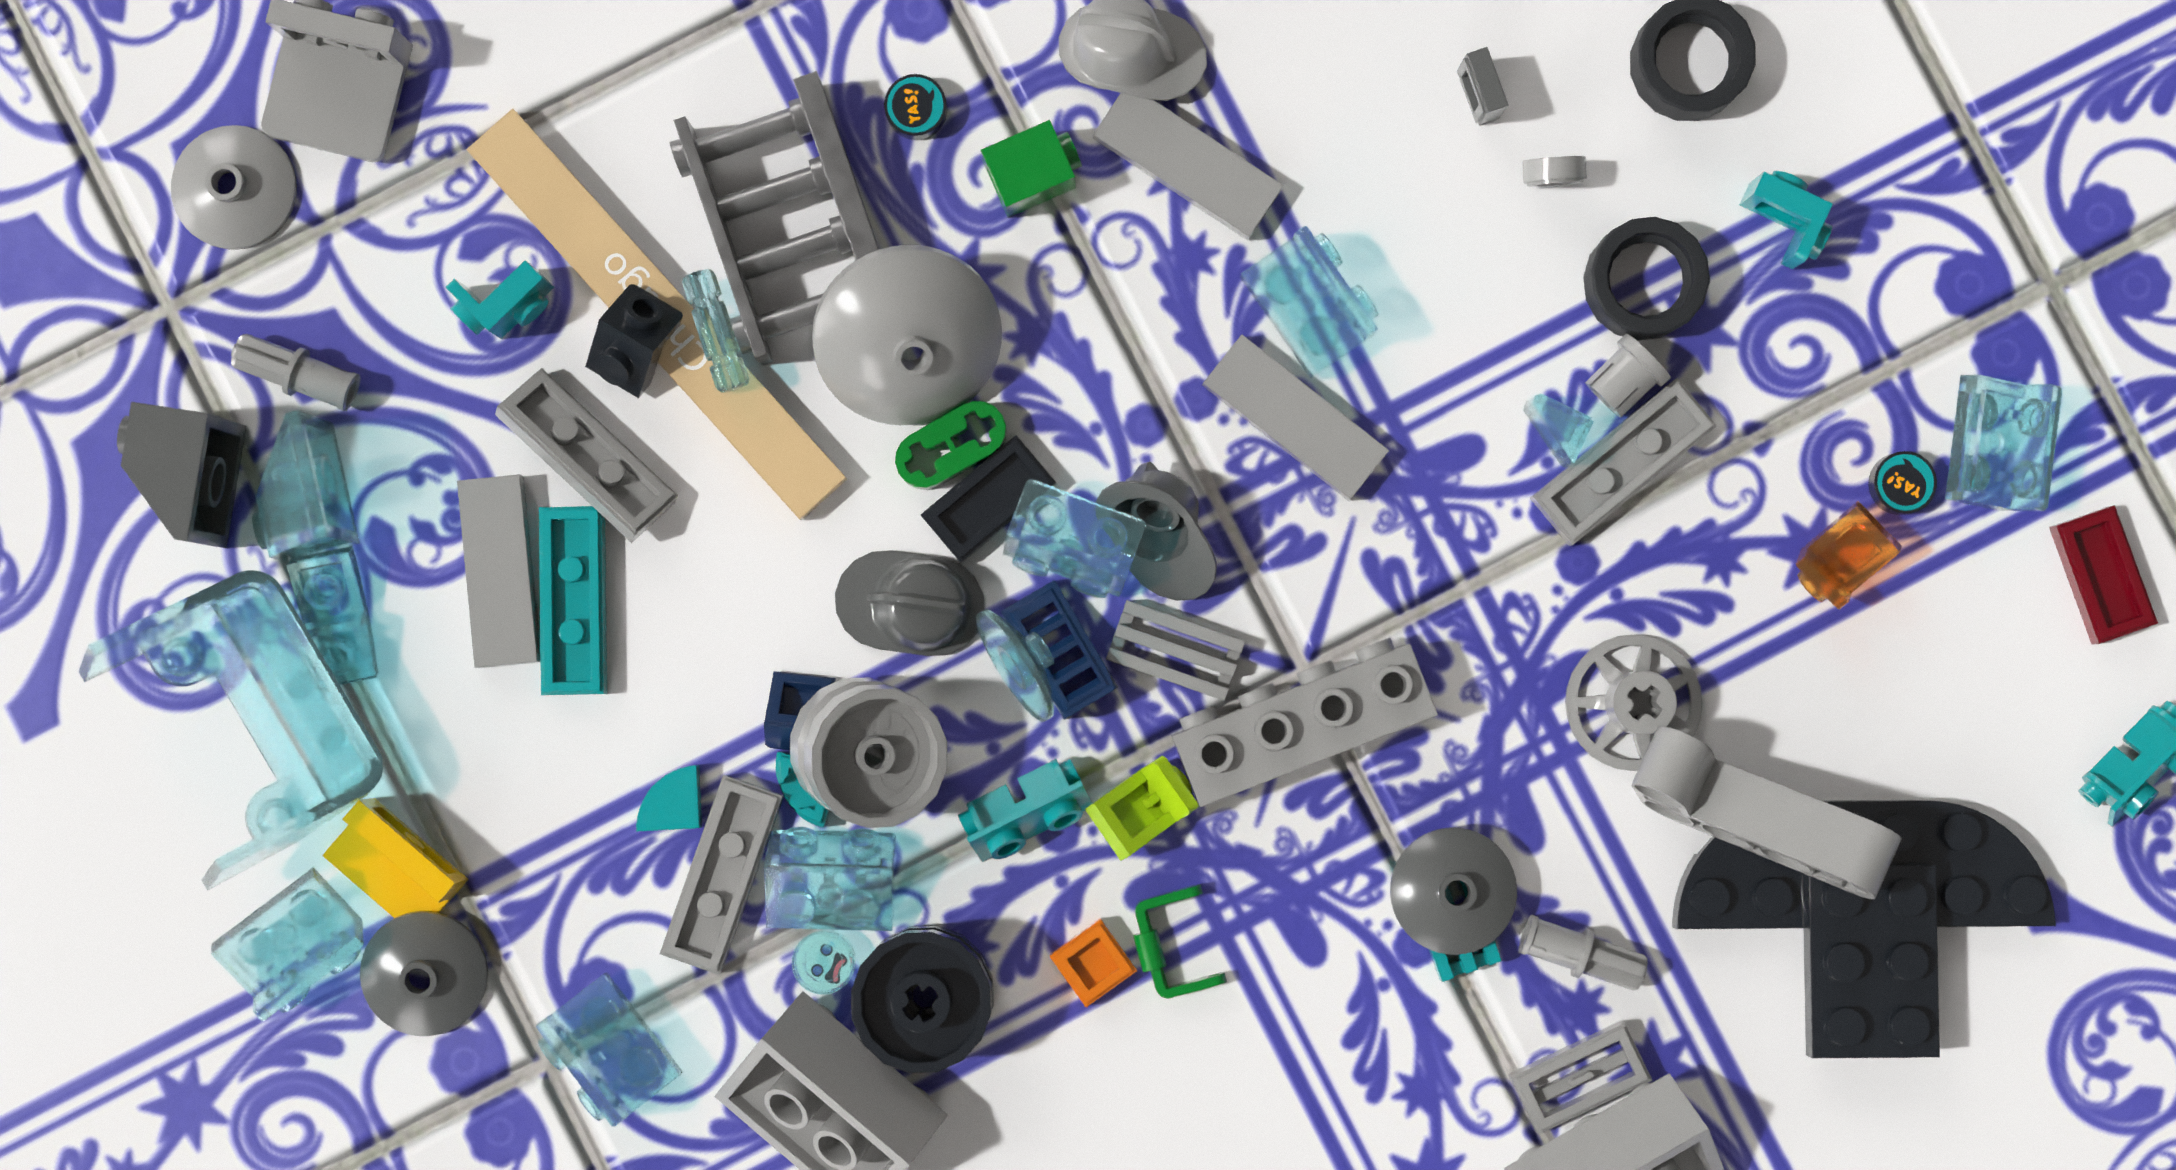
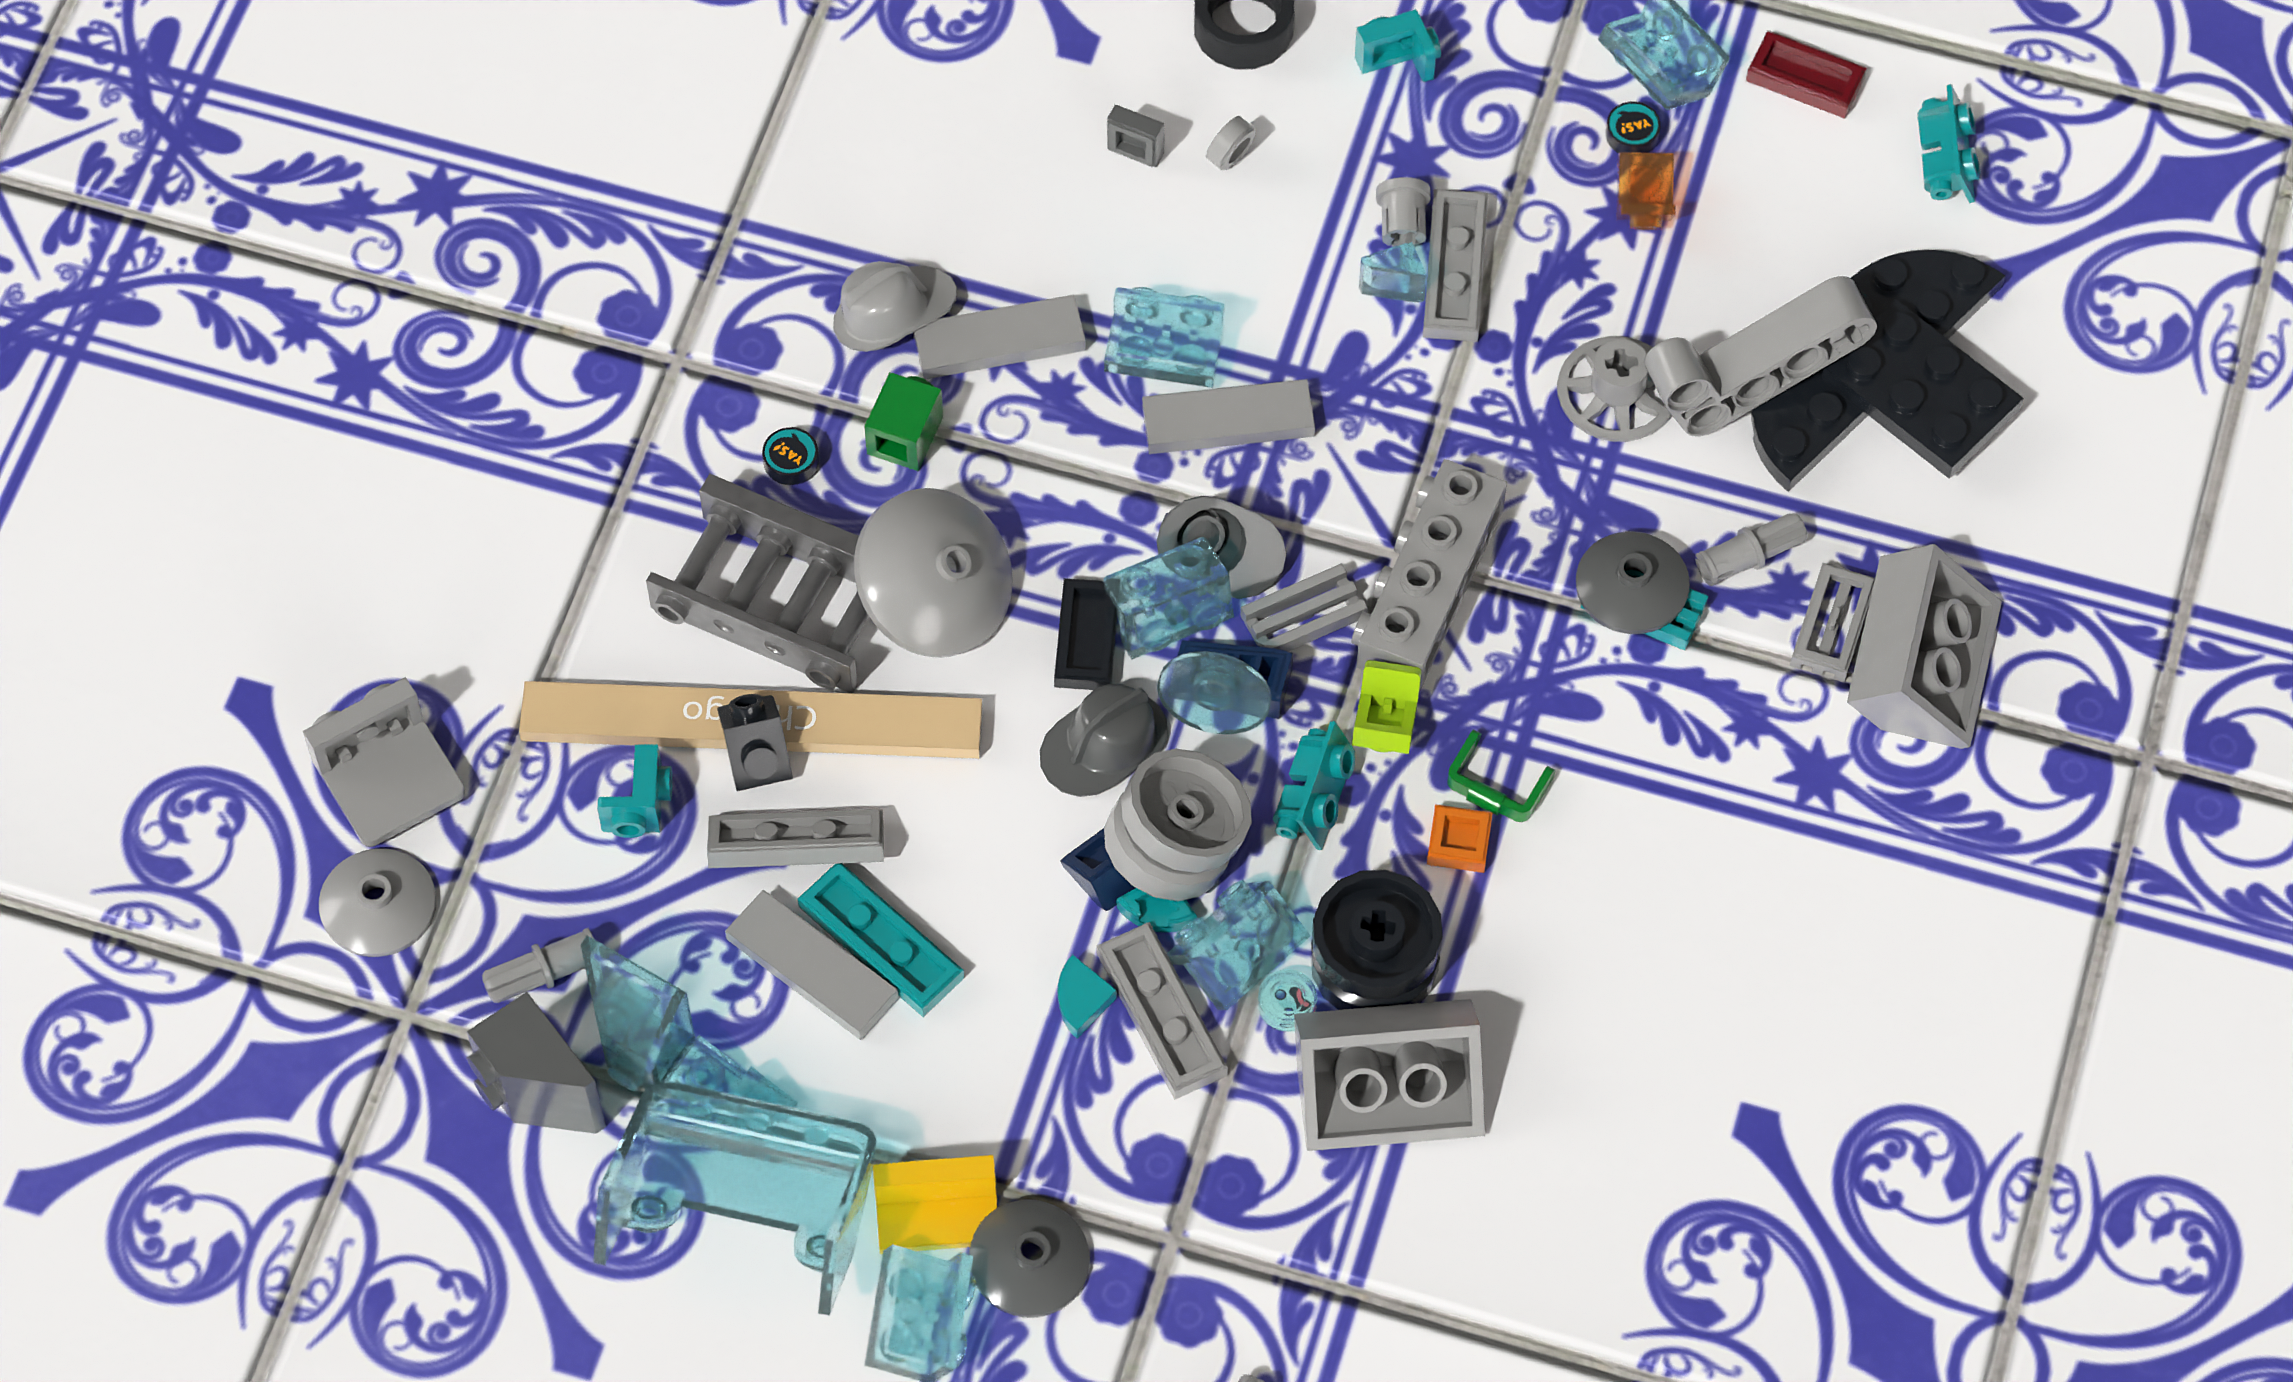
camera: 45 degrees left, 25 degrees down
(607, 1051) = (1206, 1177): clear light blue bracket -> none
(715, 330) = (804, 683): clear light blue axle -> none
(943, 432) = (1040, 627): green beam -> none
(1689, 257) = (1344, 118): black tyre -> none

